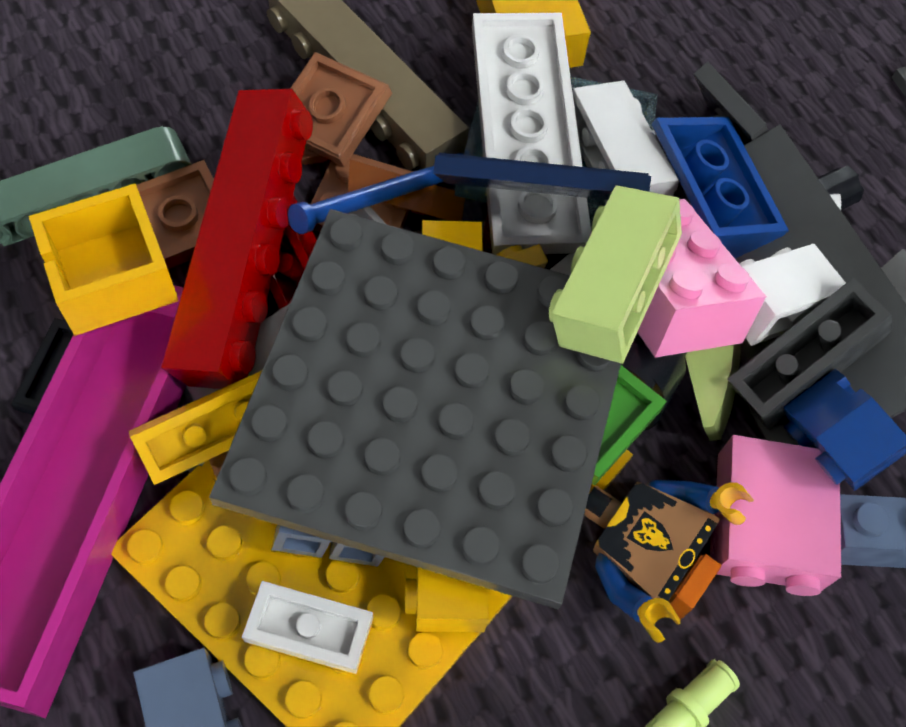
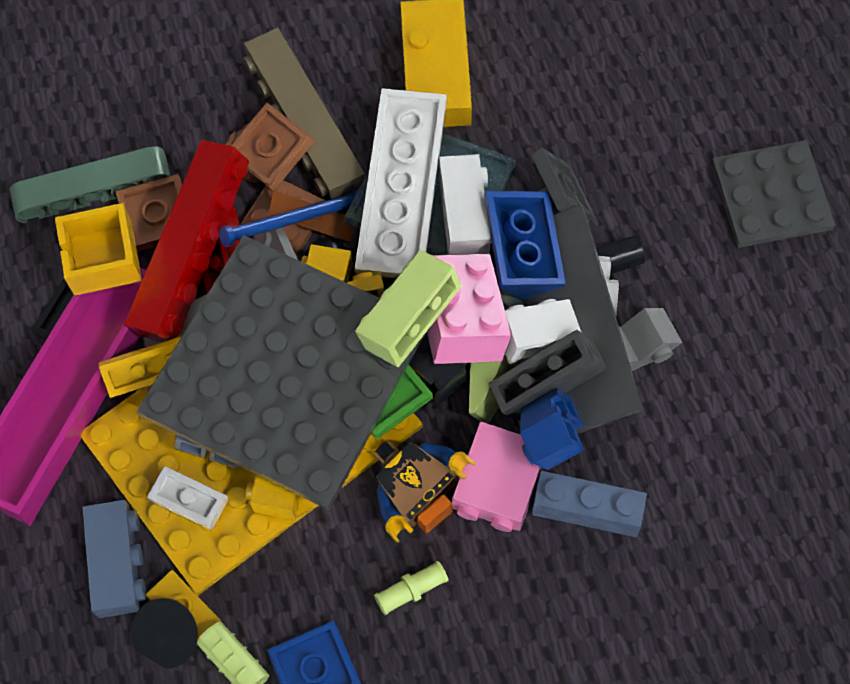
camera: 20 degrees right, 5 degrees up
(535, 176) = (387, 231): dark blue tile -> none

